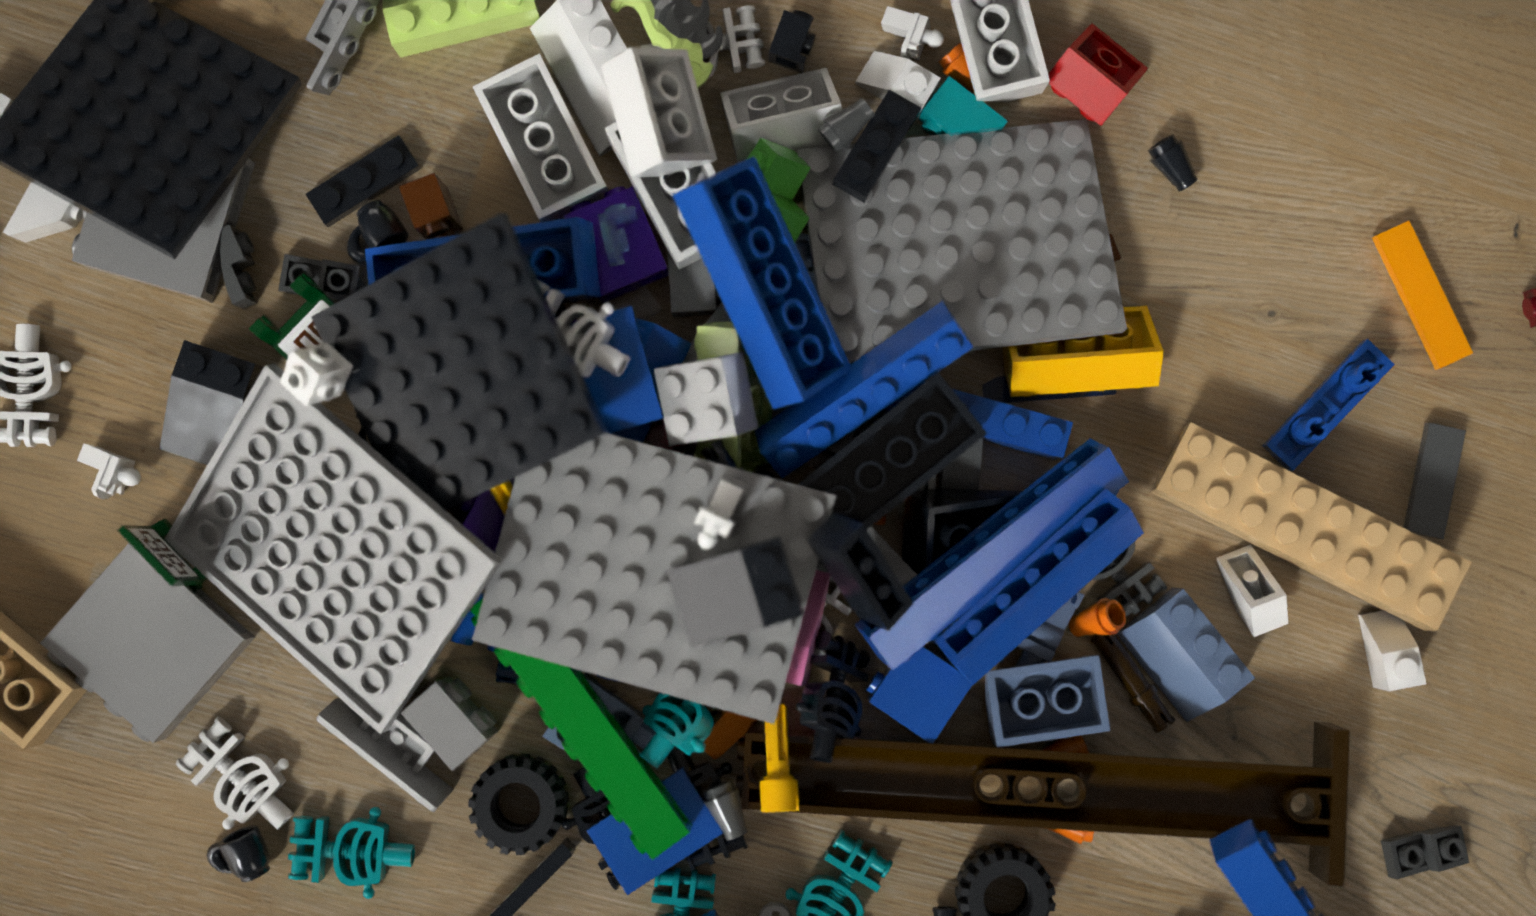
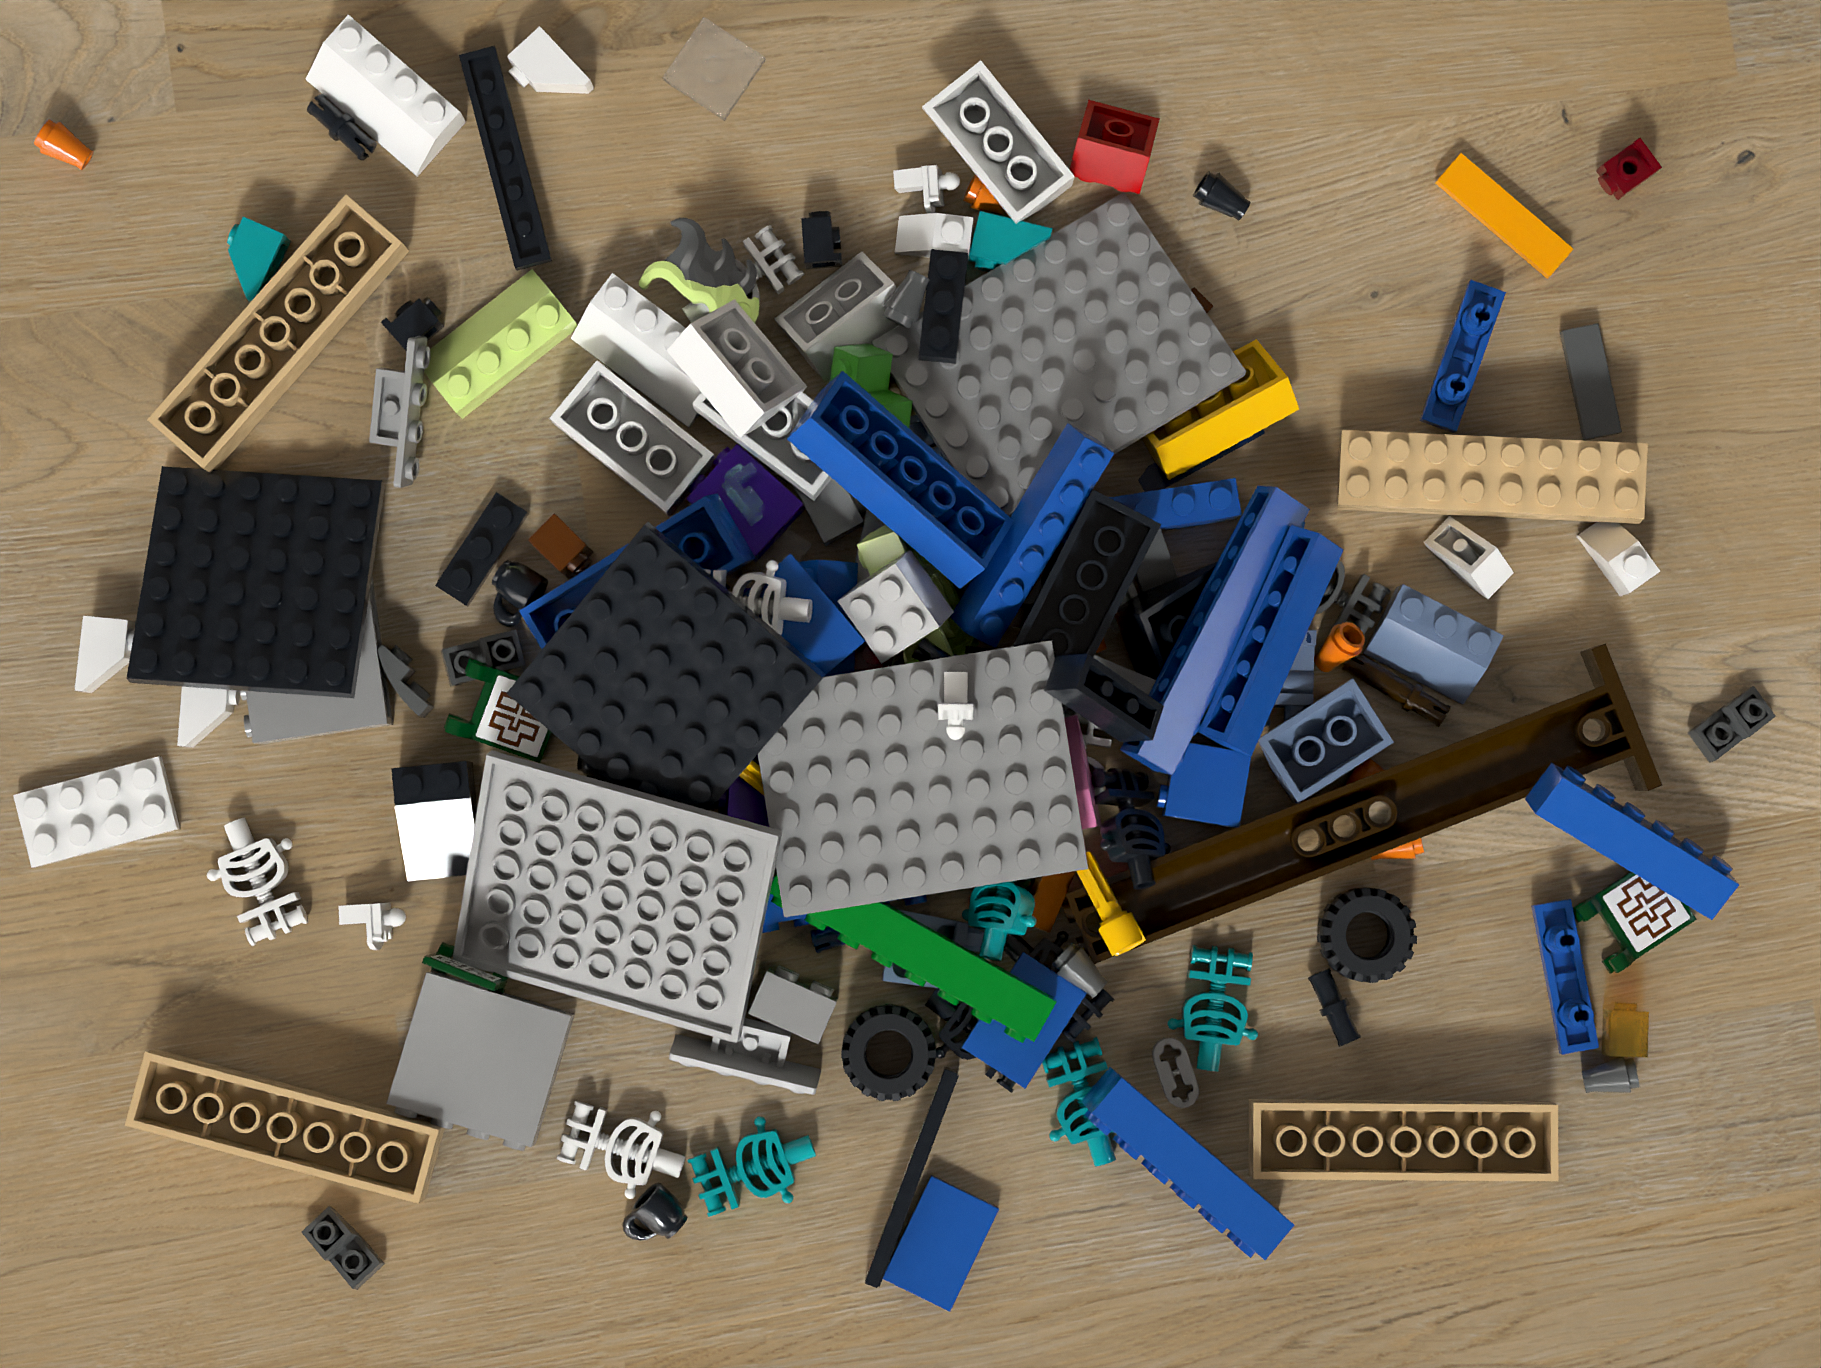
camera: 20 degrees left, 0 degrees up
(316, 373) = (538, 741): white brick -> none
(736, 591) = (1001, 765): slope -> none

